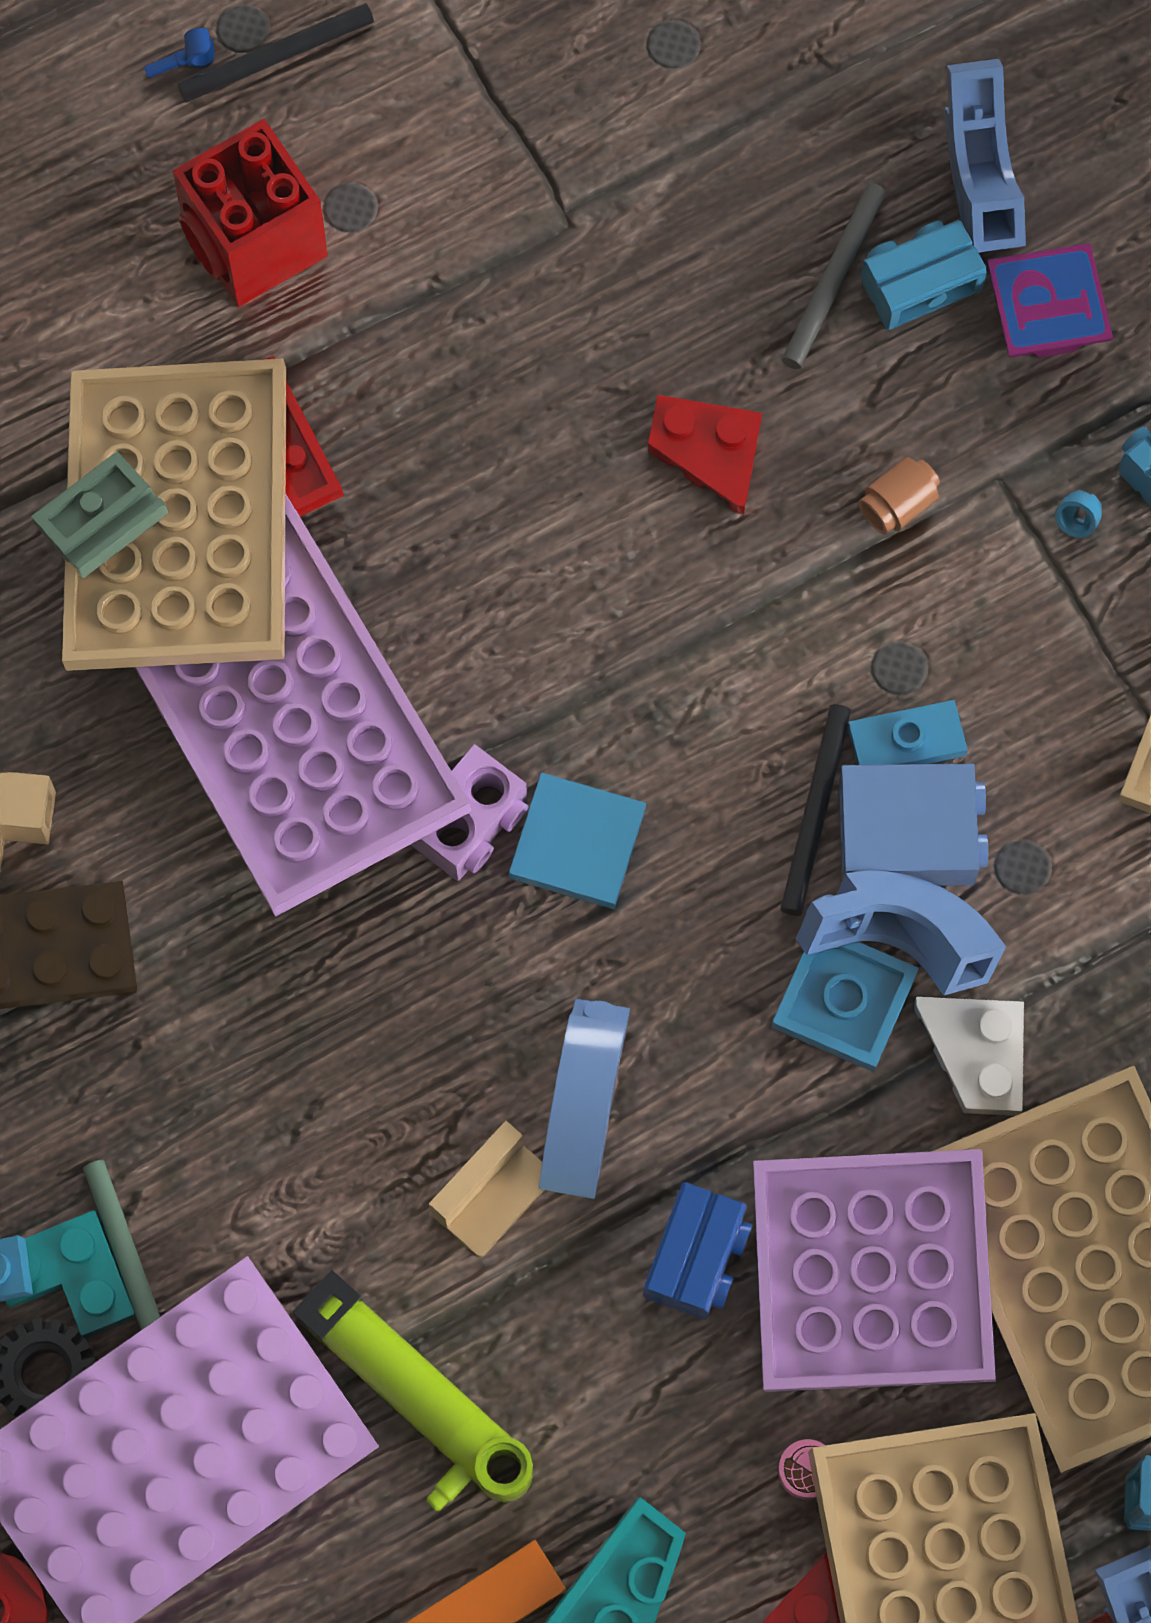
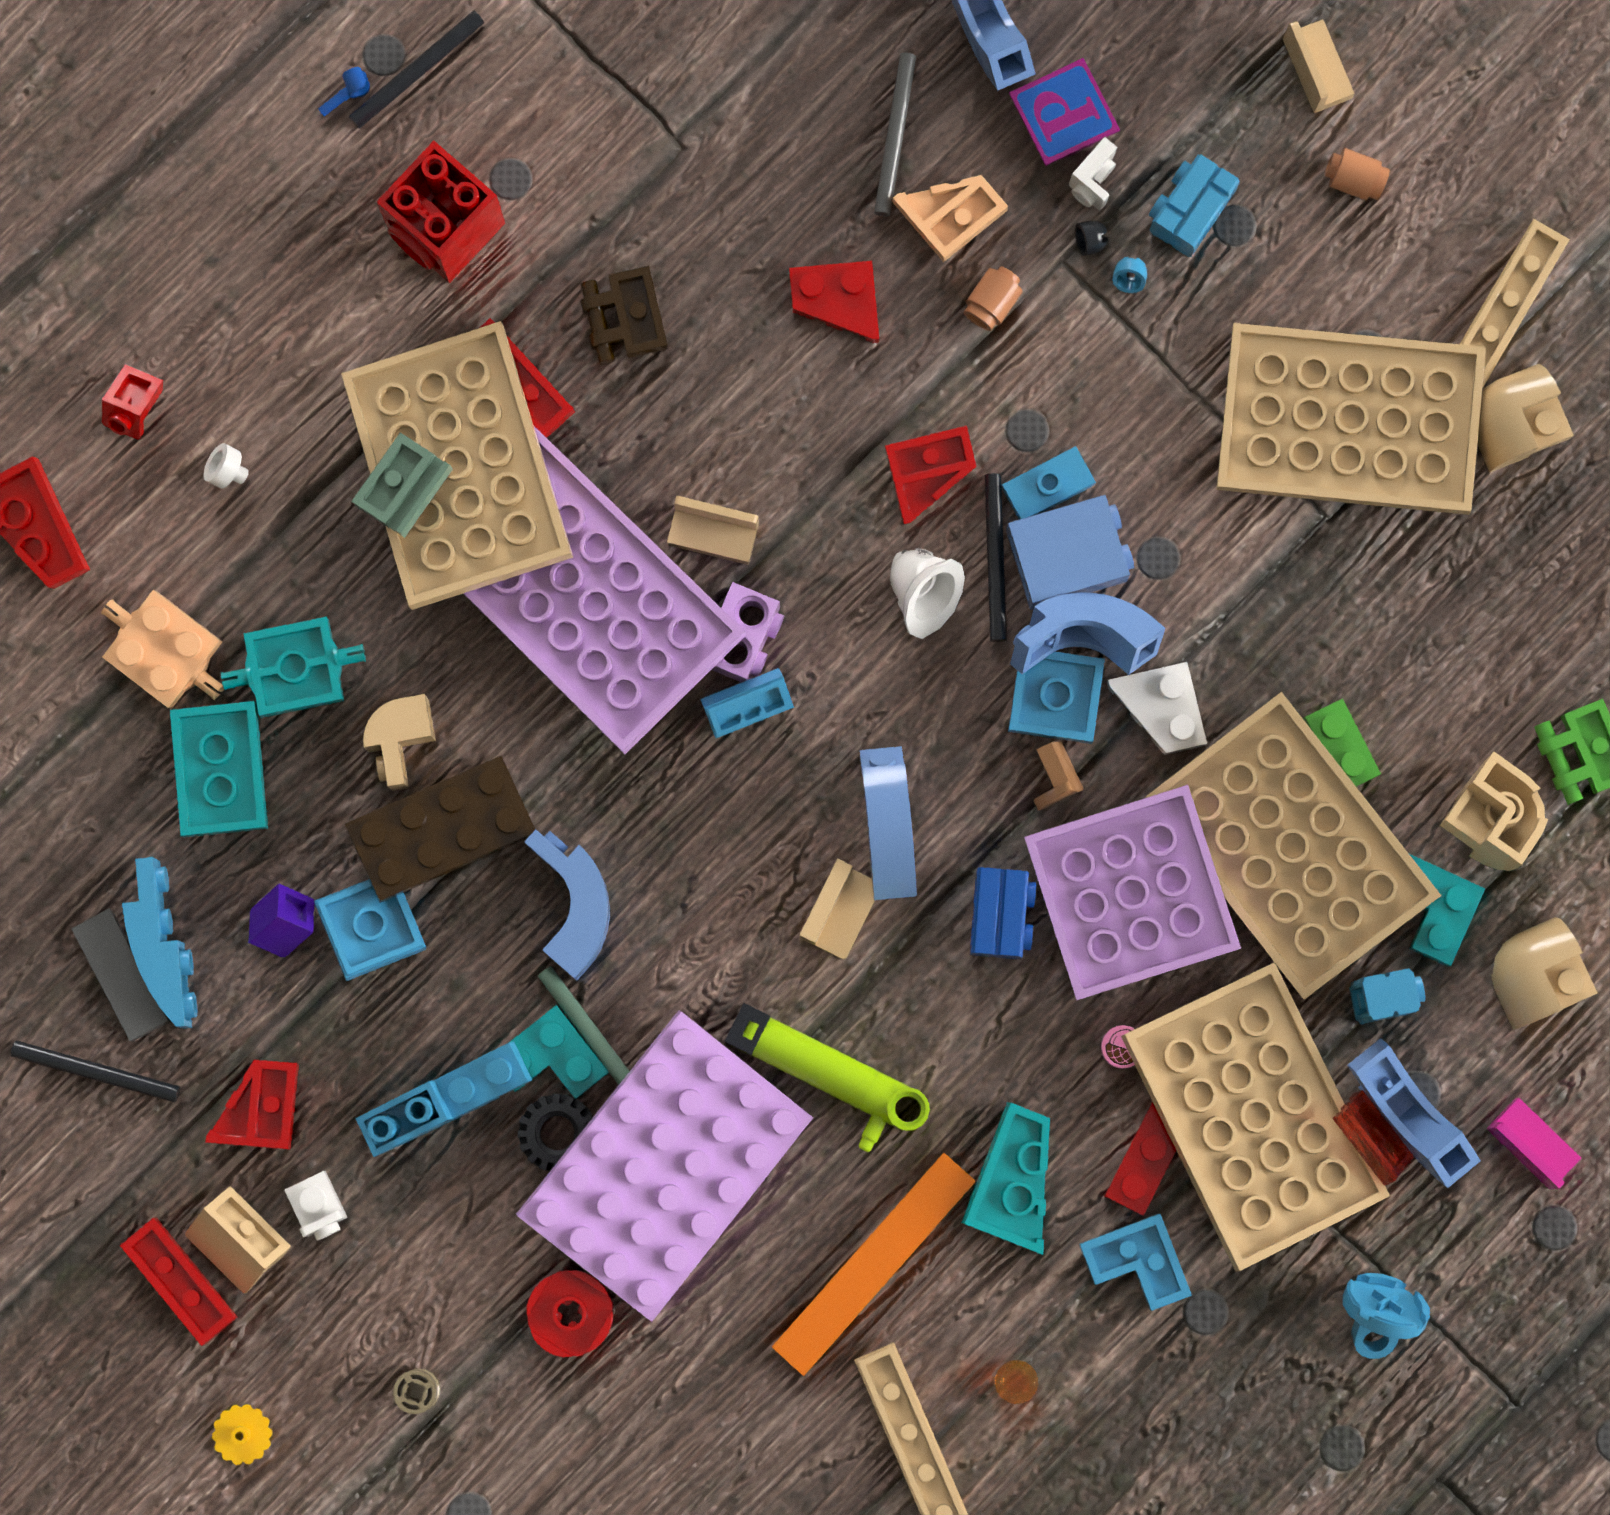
camera: 15 degrees left, 10 degrees up
(167, 1114) = (589, 915): none -> medium blue arch
(450, 900) = (747, 703): none -> dark azure plate
(455, 399) = (637, 313): none -> dark brown plate
(471, 679) = (713, 530): none -> tan panel
(577, 840) = (827, 630): dark azure tile -> none
(717, 823) = (926, 589): none -> white piece
(761, 677) = (928, 468): none -> red wing
(823, 1096) = (1060, 773): none -> medium nougat tile
(877, 383) = (951, 213): none -> light nougat wing
(922, 273) = (962, 116): dark azure brick -> none
(1040, 456) = (1089, 237): none -> black hinge
(1066, 377) = (1095, 167): none -> white bracket

